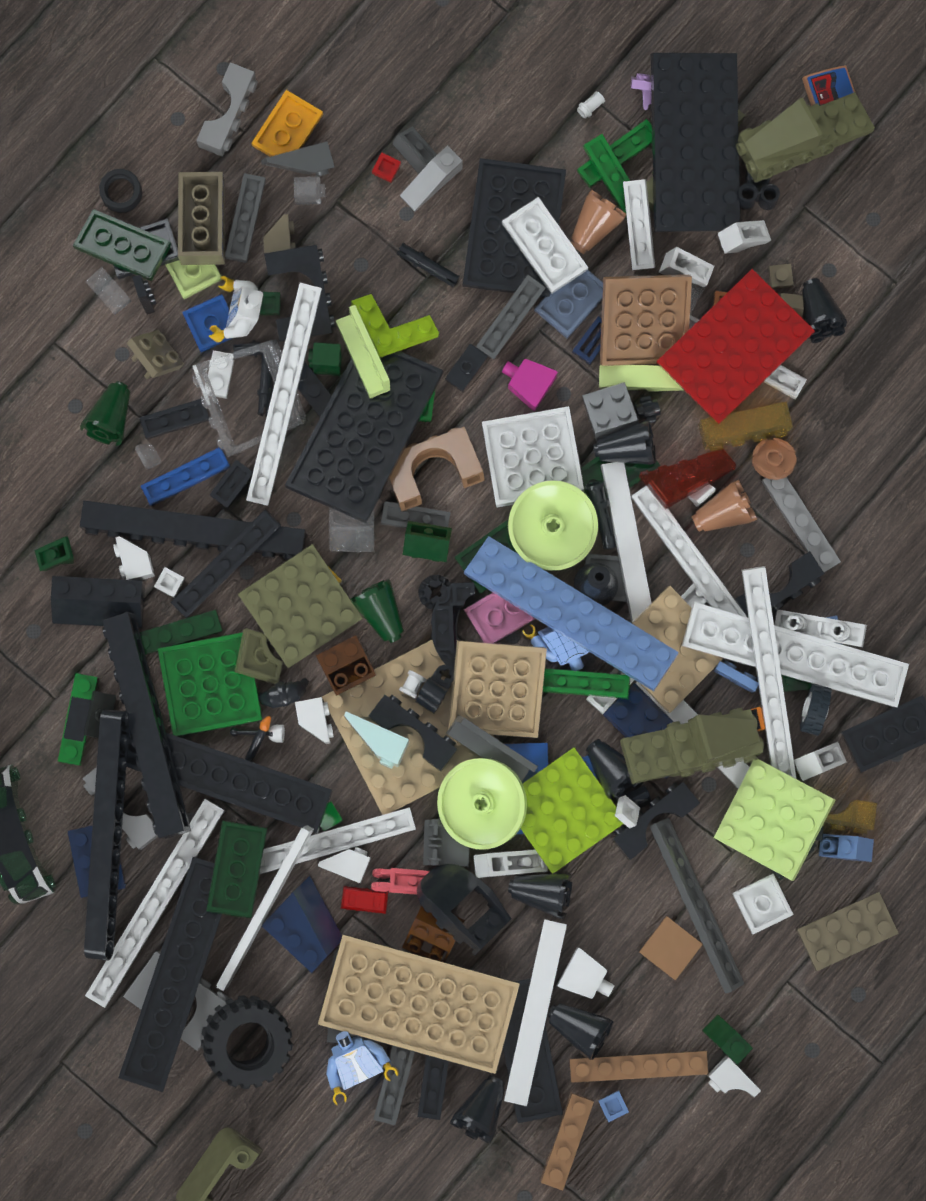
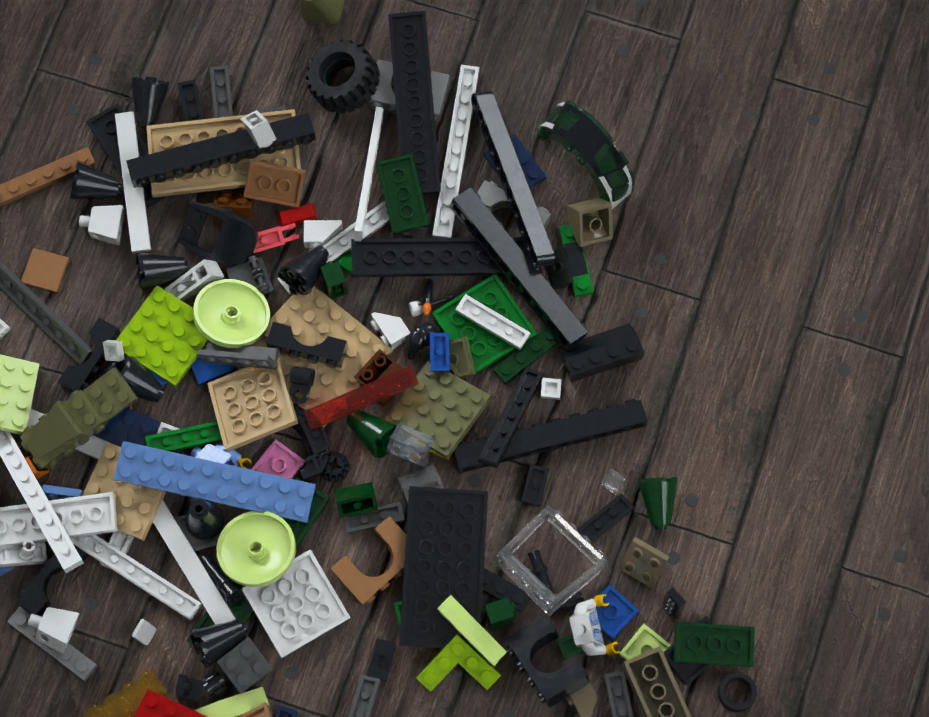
camera: 165 degrees right, 10 degrees down
(41, 753) = (591, 221): none -> dark tan slope
(54, 554) = (650, 372): dark green slope -> none
(108, 291) = (708, 602): clear plate -> none
(135, 561) = (585, 393): white slope -> none
(185, 476) = (576, 478): blue tile -> none
(200, 677) = (492, 322): none -> white plate
(220, 375) = (581, 565): white plate -> none
(272, 664) = (439, 352): none -> blue plate
(284, 394) = (521, 568): white plate -> none
(305, 926) = (334, 176): dark blue wedge -> none
(346, 570) = (411, 445): none -> clear slope
(353, 798) = (334, 279): none -> dark green brick
(355, 1062) = (256, 95): torso -> none
(369, 1002) = (259, 129): none -> white slope
(376, 939) = (274, 183): none -> medium nougat tile
(378, 644) = (361, 397): none -> clear red plate
(381, 819) = (304, 270): none -> black cone
(383, 743) = (325, 322): light aqua slope -> none
(412, 684) = (322, 381): white bush -> none
(421, 1002) = (217, 151): none -> black brick
(529, 381) = (323, 668): dark pink torso -> none
(567, 1141) = (75, 90): medium nougat arch -> none
(613, 1106) = (49, 142): medium blue plate -> none
(676, 412) = (188, 688): none -> black slope
(681, 480) = (163, 633): clear red wing -> none
(725, 509) = (117, 624): nougat cone -> none
(774, 458) = (91, 685): nougat tile -> none
(793, 530) = (54, 627): none -> white torso

